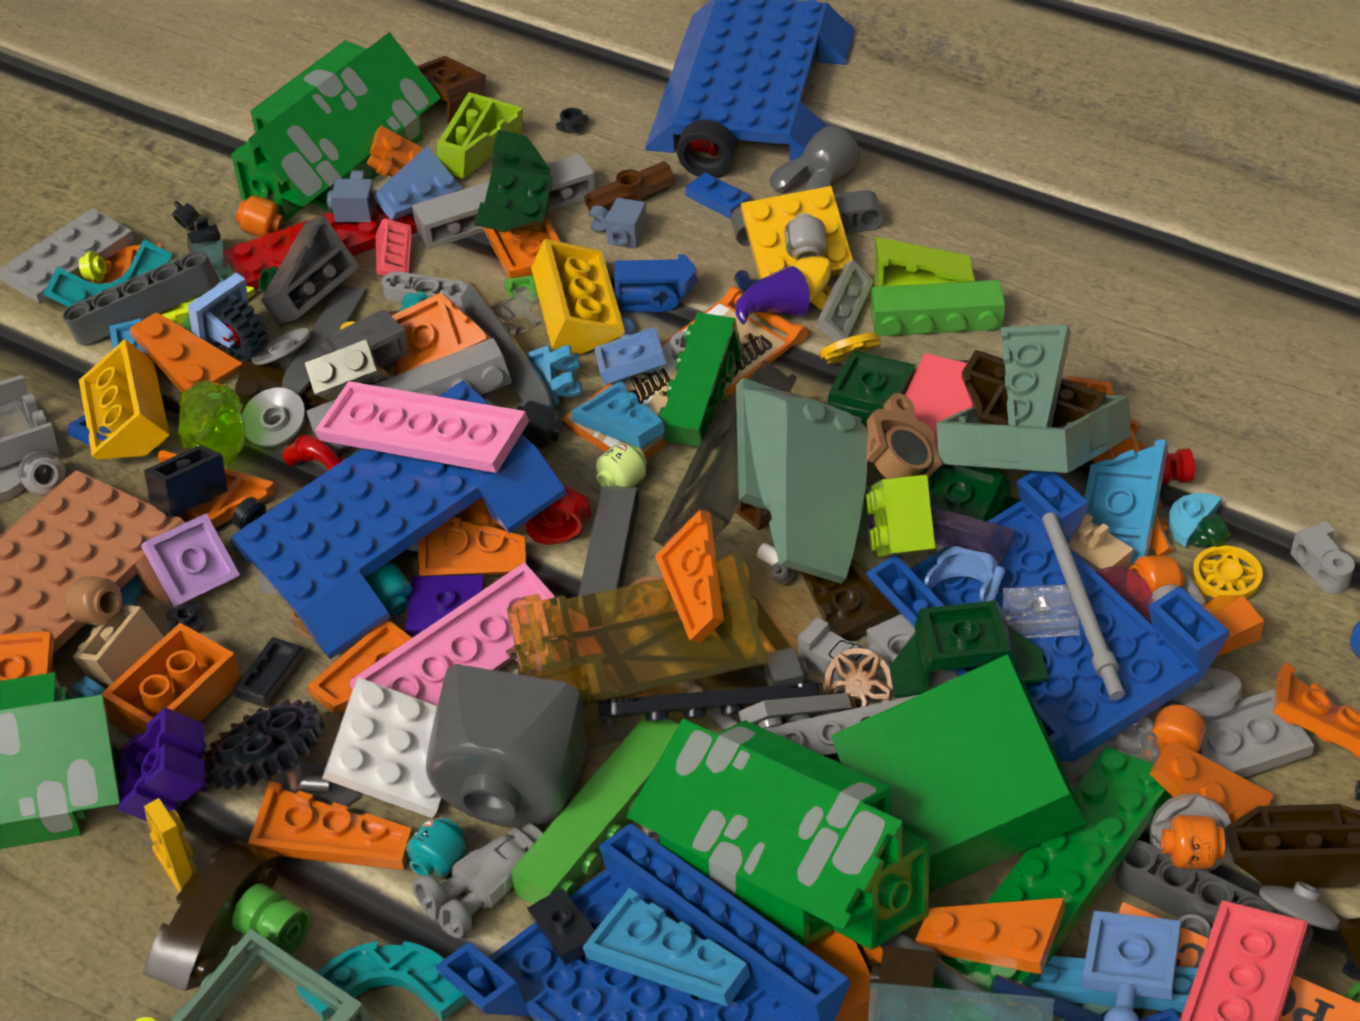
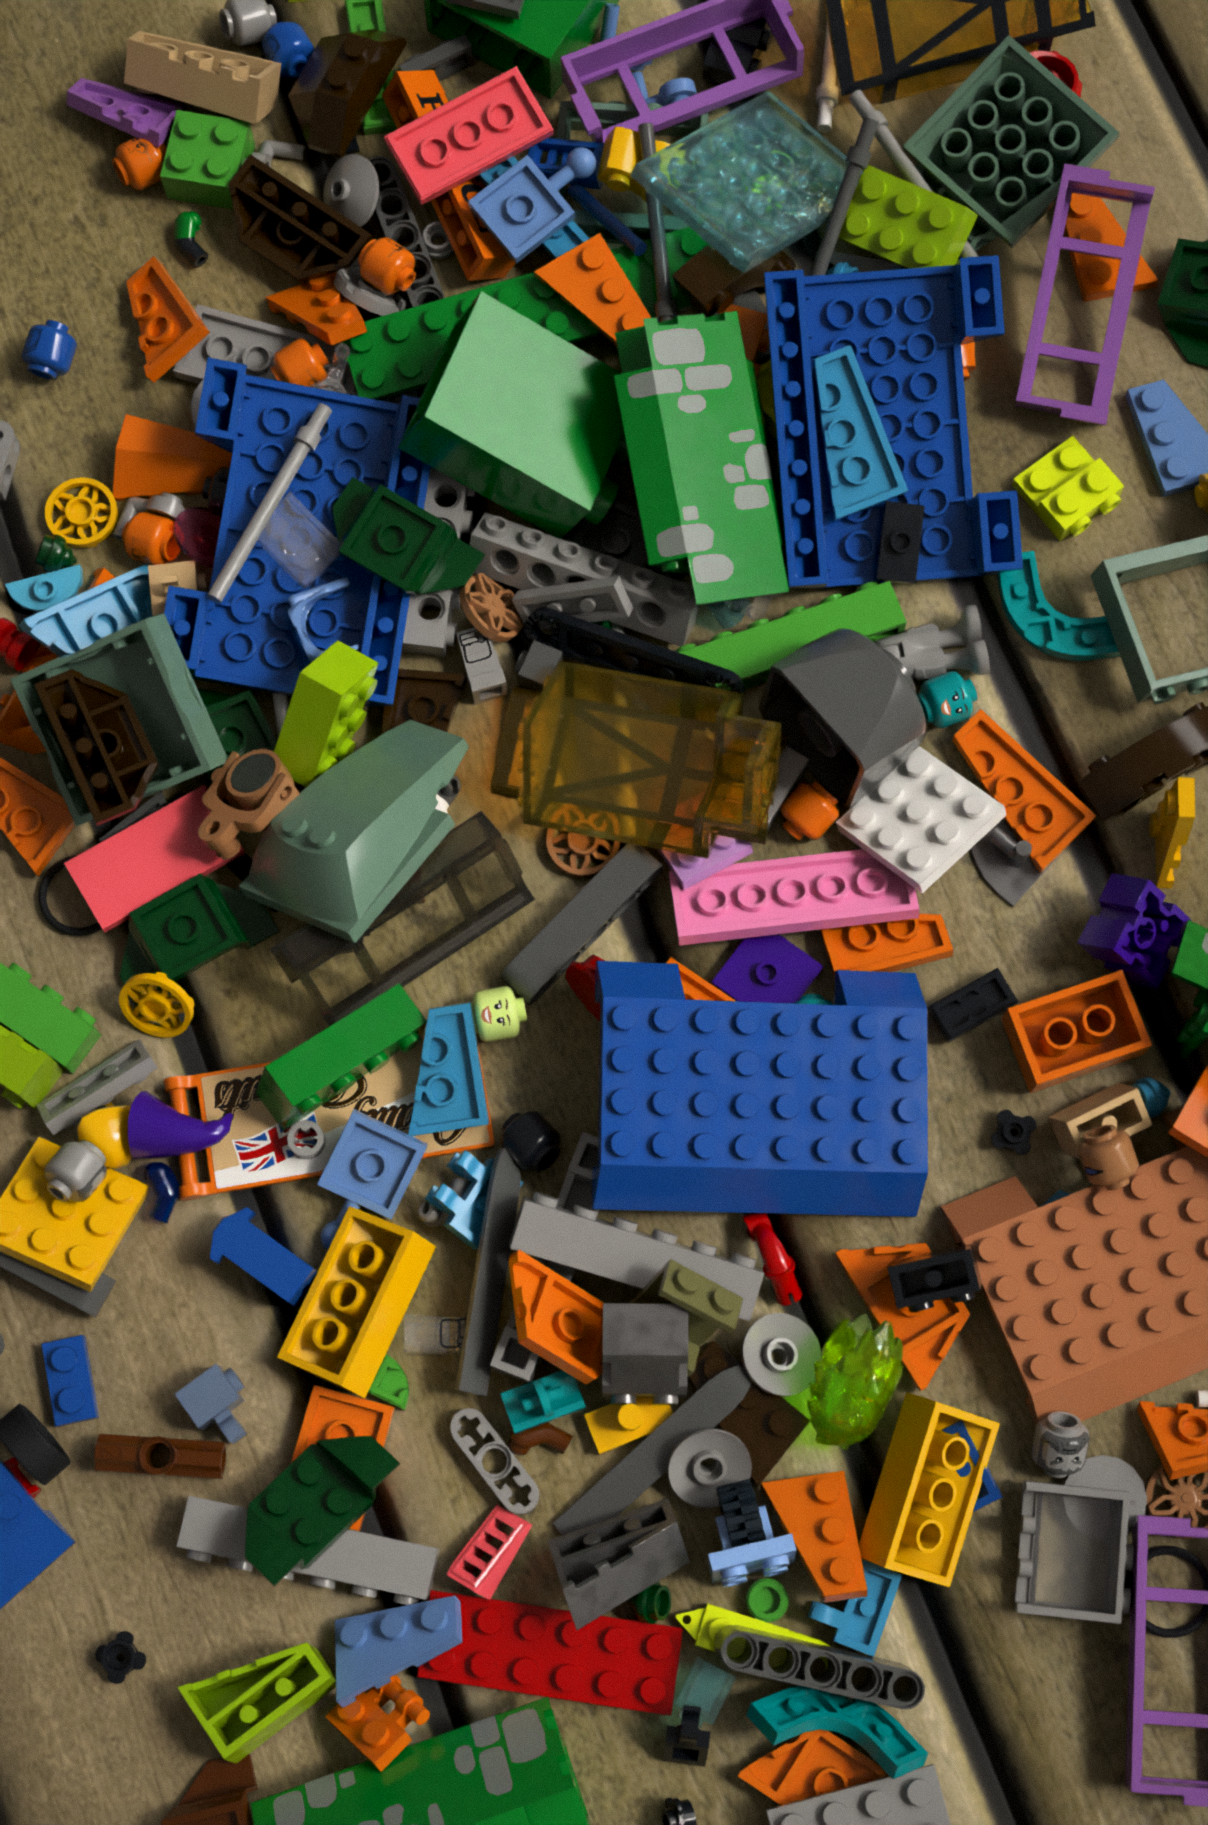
camera: 145 degrees left, 30 degrees up
(92, 267) = (846, 1766): neon yellow plate -> none
(190, 560) = (978, 1185): lavender plate -> none
(247, 512) = (882, 1227): black tile -> none
(259, 216) = (598, 1742): orange head -> none
(263, 744) = (998, 916): black gear -> none
(272, 917) = (1116, 721): bright green wheel -> none
(352, 198) = (484, 1661): sand blue brick -> none
(422, 426) = (691, 1111): bright pink plate -> none
(692, 576) = (553, 786): orange wing -> none
(971, 533) = (274, 657): clear purple bracket -> none
(1034, 371) = (85, 737): sand green wing -> none

